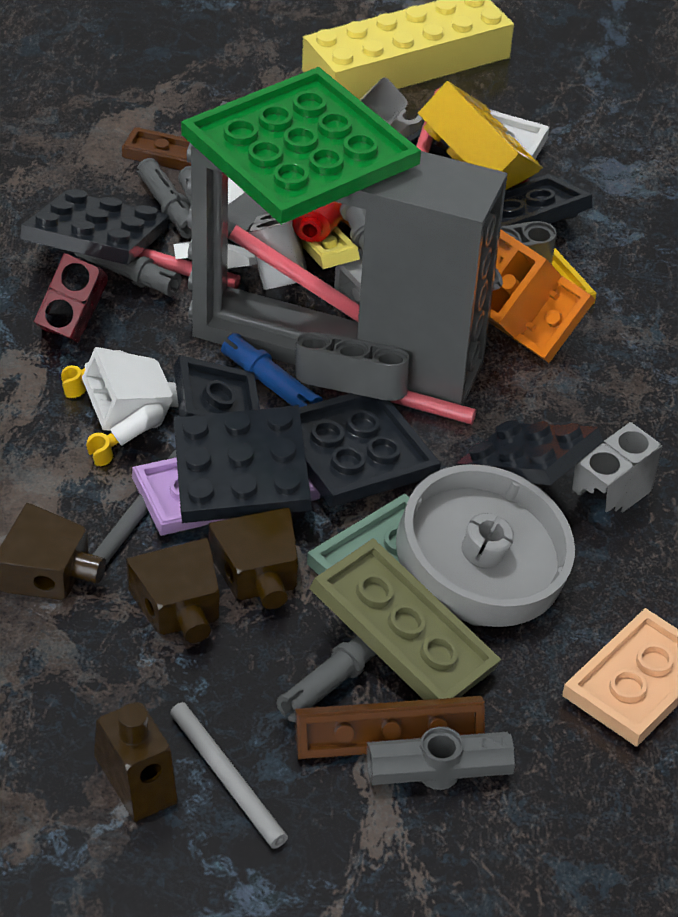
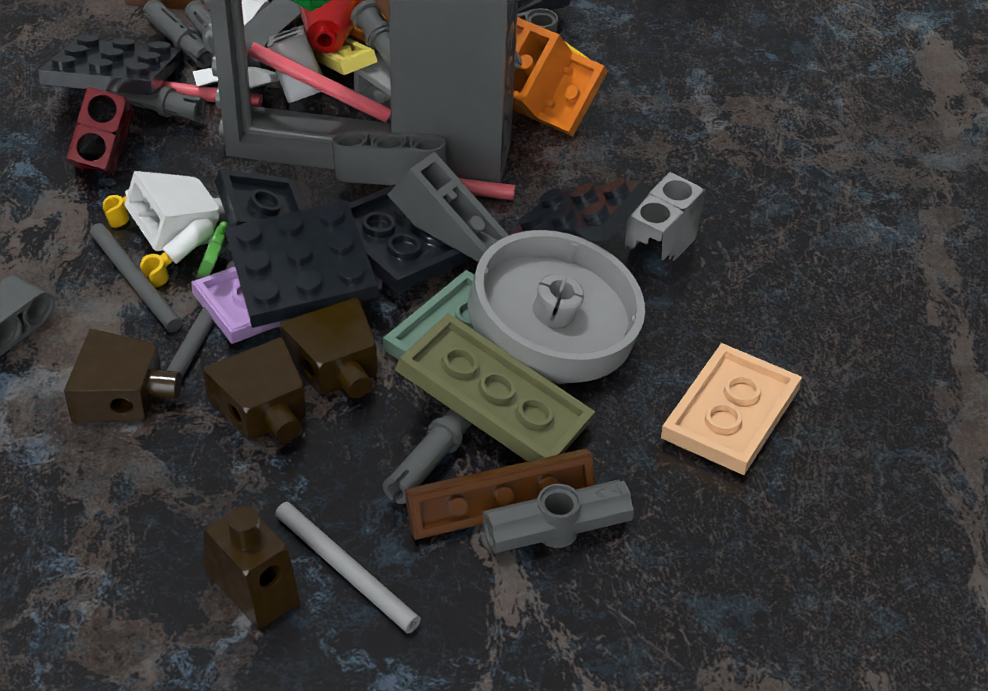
camera: 10 degrees left, 0 degrees up
(80, 454) = (136, 278): none -> dark grey bar
(158, 438) = (212, 251): none -> bright green piece
(268, 372) = (307, 176): blue pin -> none
(396, 428) = (445, 208): none -> dark grey slope

